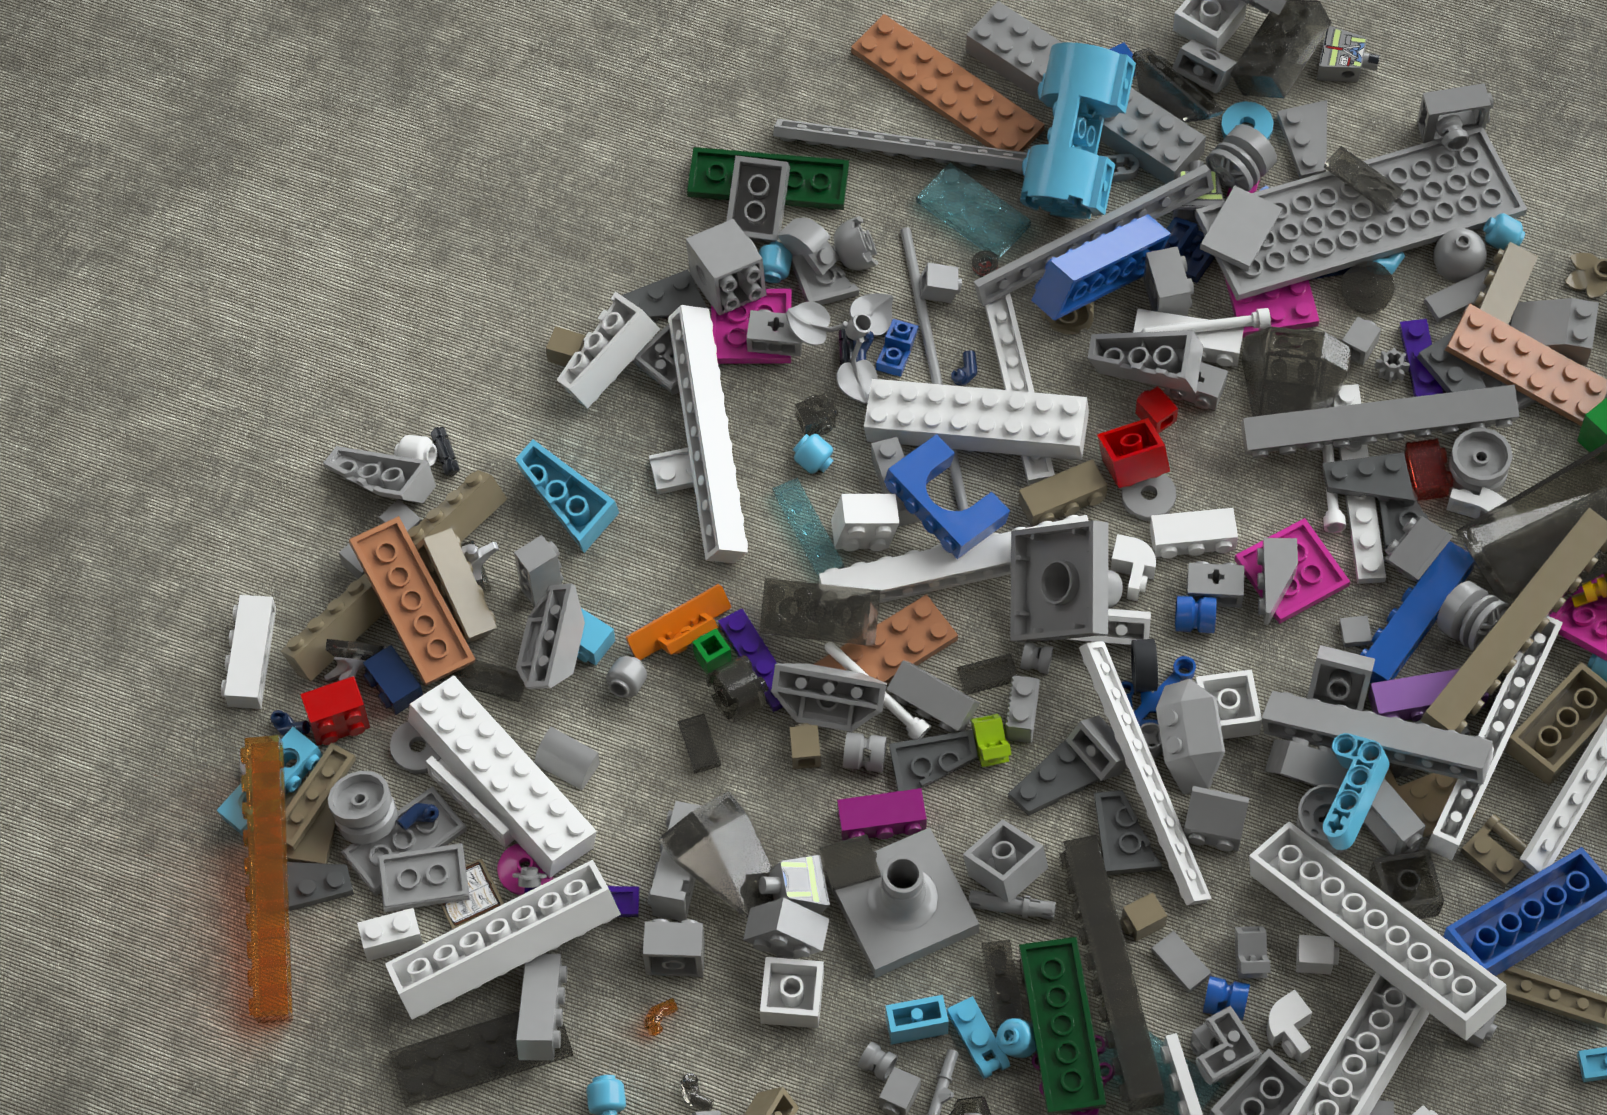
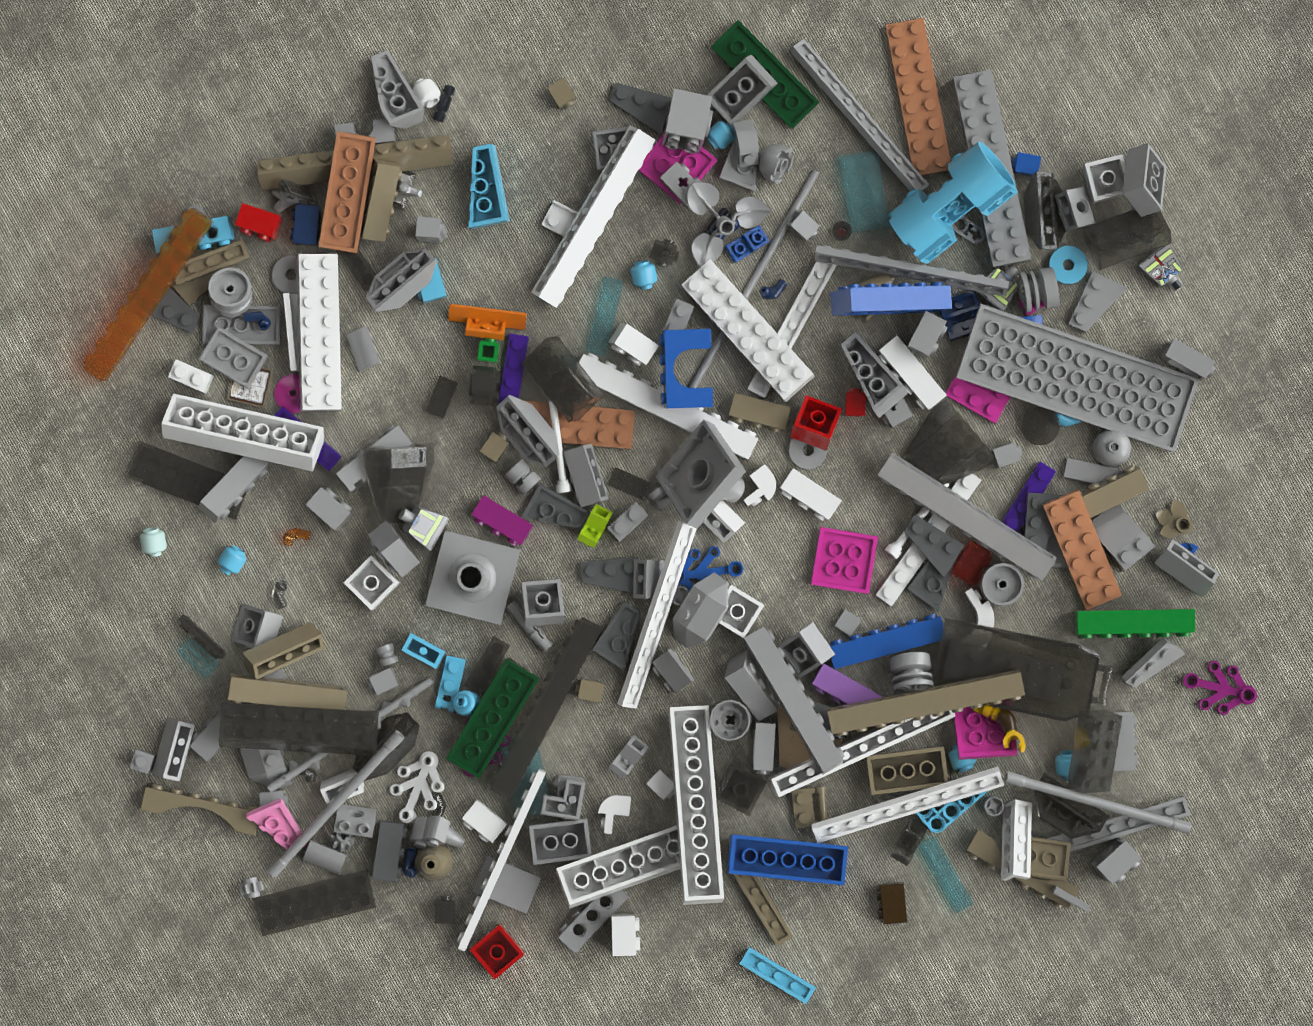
camera: 30 degrees right, 25 degrees up
(249, 651) = (242, 144): white brick -> none
(284, 723) = (230, 204): dark blue arm -> none
(529, 877) = (287, 405): light grey plate -> none
(607, 350) = (580, 117): white wedge -> none
(626, 676) = (432, 327): light grey head -> none
(850, 862) = (461, 535): clear smoke piece -> none
(1144, 665) = (710, 554): black tyre -> none
(1181, 961) = (590, 729): light grey tile -> none
(1195, 614) = (767, 544): blue wheel -> none
(1222, 995) = (593, 770): blue wheel -> none
(1229, 586) = (798, 545): light grey brick -> none
(1241, 228) = (994, 337): light grey tile -> none
(1258, 319) = (956, 399): white piece -> none
(1279, 568) = (833, 557): light grey slope -> none
(1343, 825) = (747, 722): medium azure beam -> none
(1363, 179) = (1094, 362): clear smoke plate -> none
(1392, 365) = (1006, 488): light grey gear -> none
(1417, 547) = (918, 609): light grey slope -> none
(1451, 130) = (1173, 373): light grey wheel -> none
(1503, 230) = (1147, 456): medium azure head -> none

